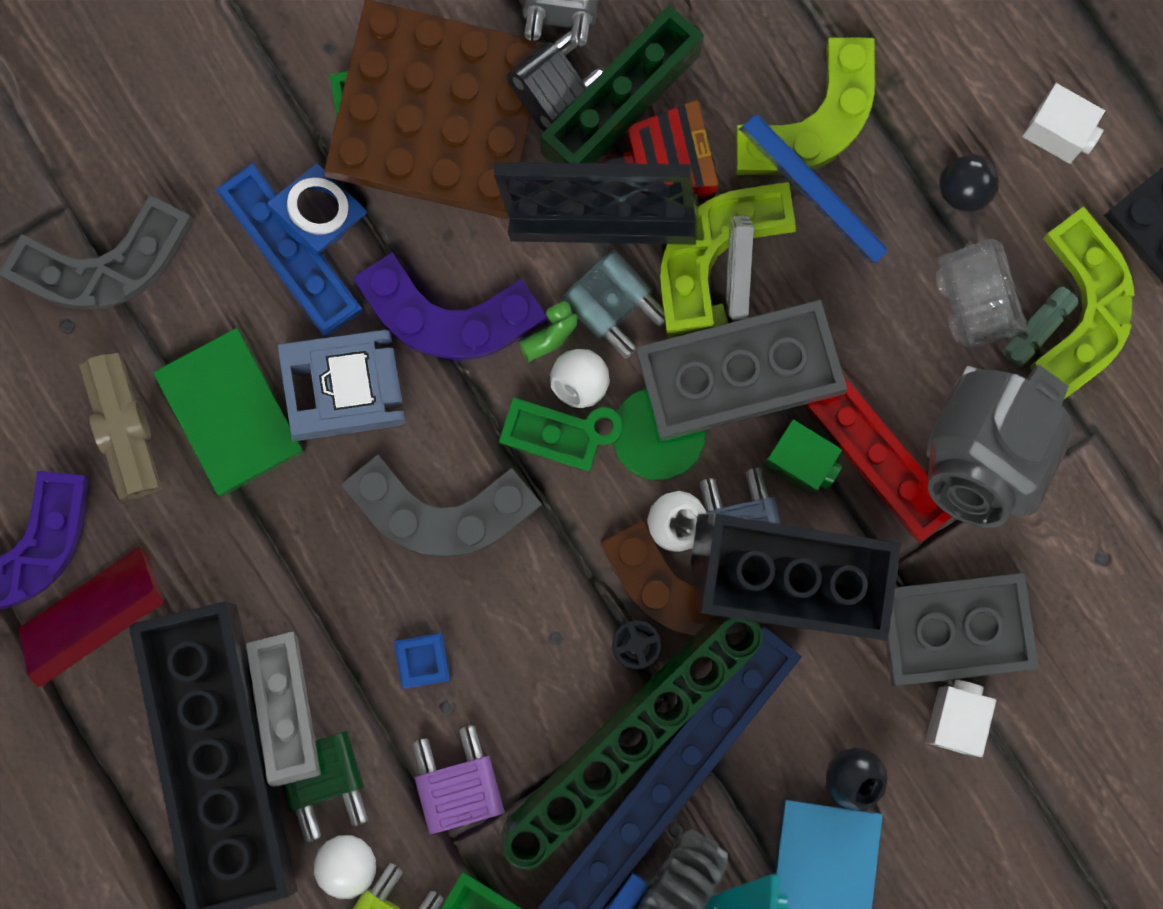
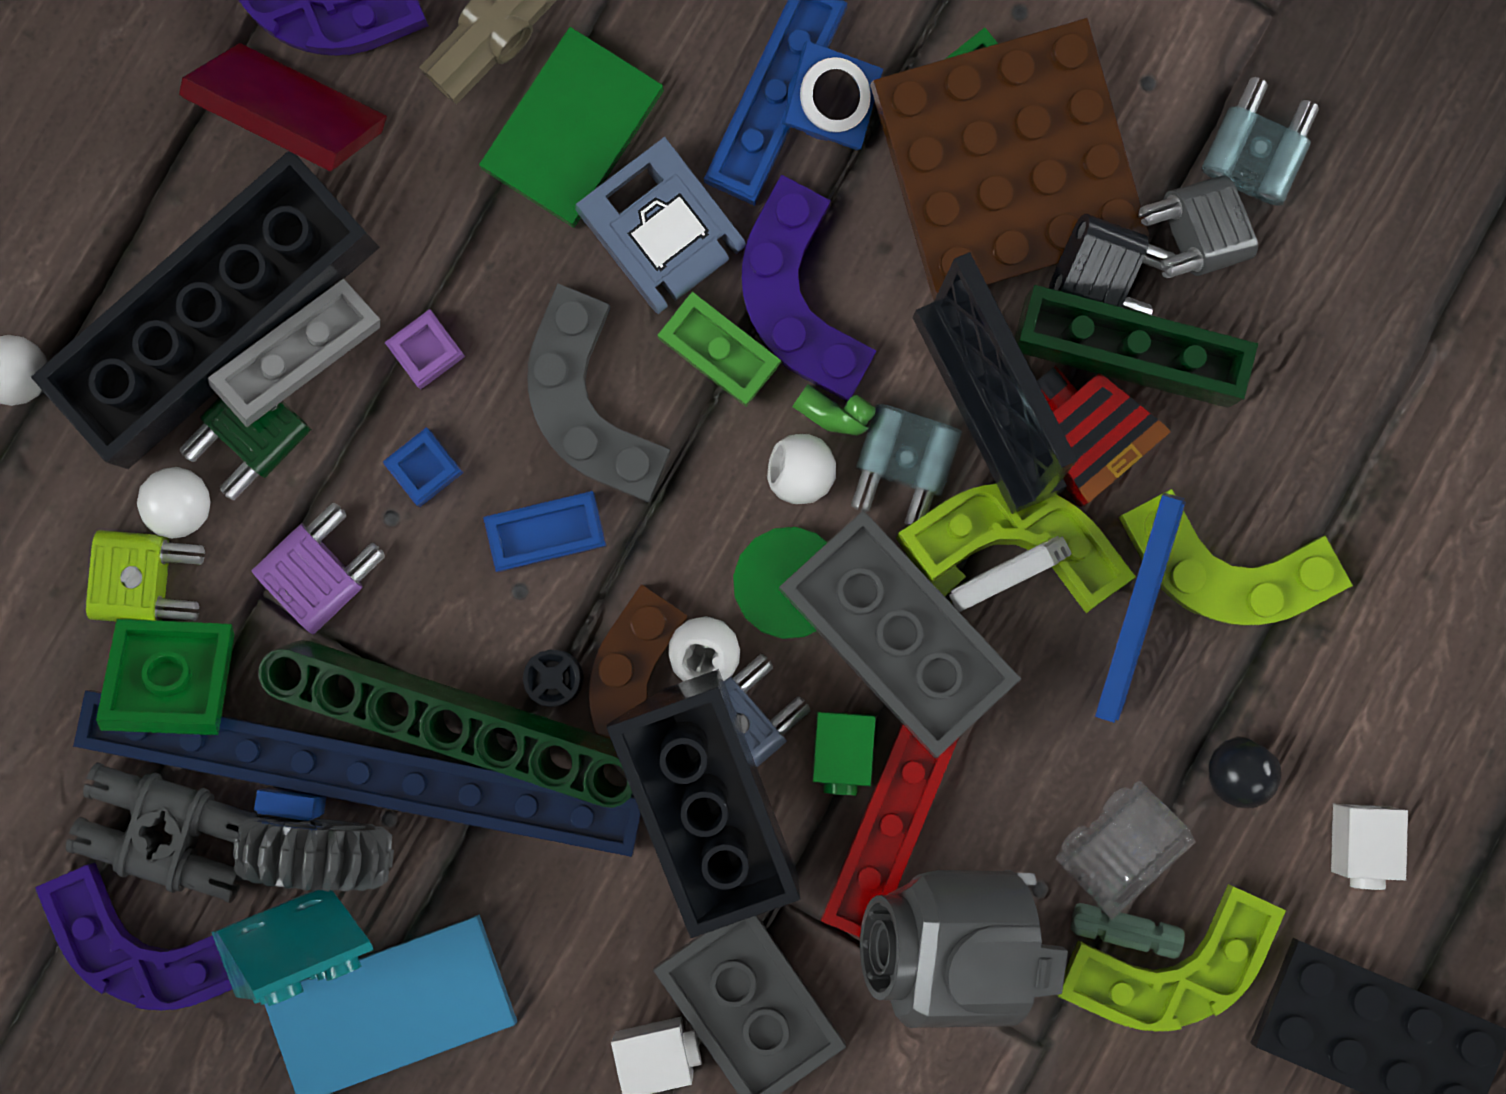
camera: 70 degrees right, 5 degrees up
(333, 611) = (424, 349): none -> medium lavender tile
(457, 391) = (719, 349): none -> bright green plate
(521, 594) = (545, 531): none -> blue tile
(557, 434) = (729, 478): green hinge -> none
(856, 778) = (535, 979): black piece -> none

